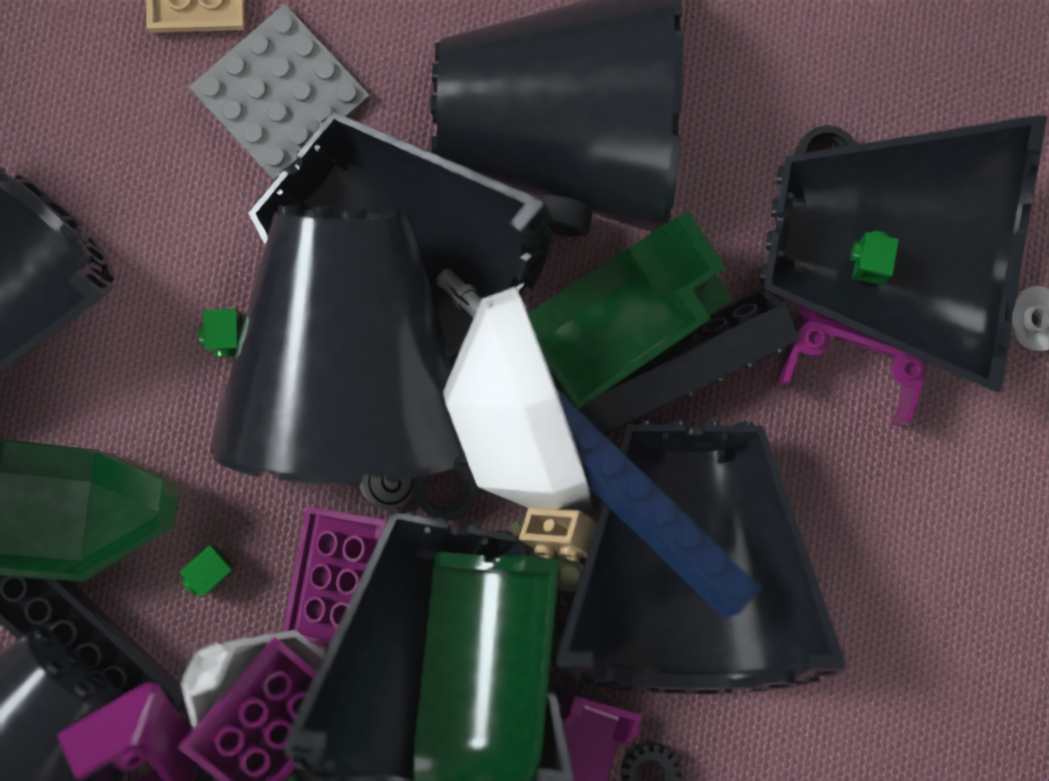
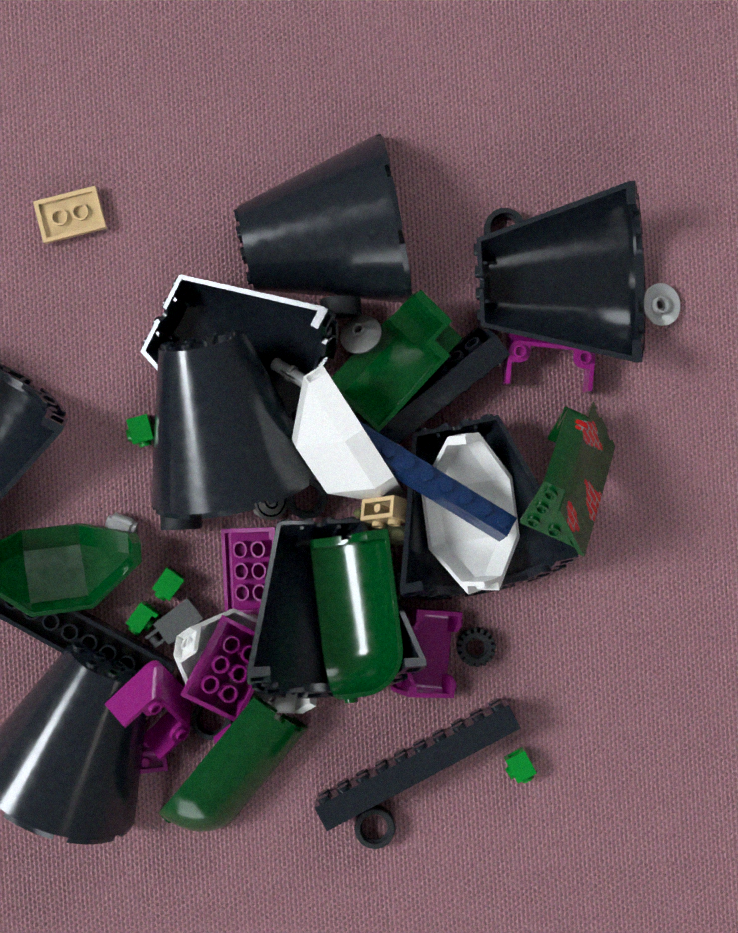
camera: 10 degrees left, 5 degrees up
(155, 614) = (142, 618): none -> green brick
(160, 463) = (122, 523): none -> light grey brick
(213, 626) = (176, 622): none -> dark grey brick
(265, 484) = (194, 522): none -> black tyre
(277, 90) = (139, 264): light grey plate -> none
(587, 271) = (365, 339): none -> light grey dish
(667, 620) = (464, 550): none -> white panel
(855, 566) = (574, 479): none -> dark green panel
(874, 257) = (547, 289): green brick -> none

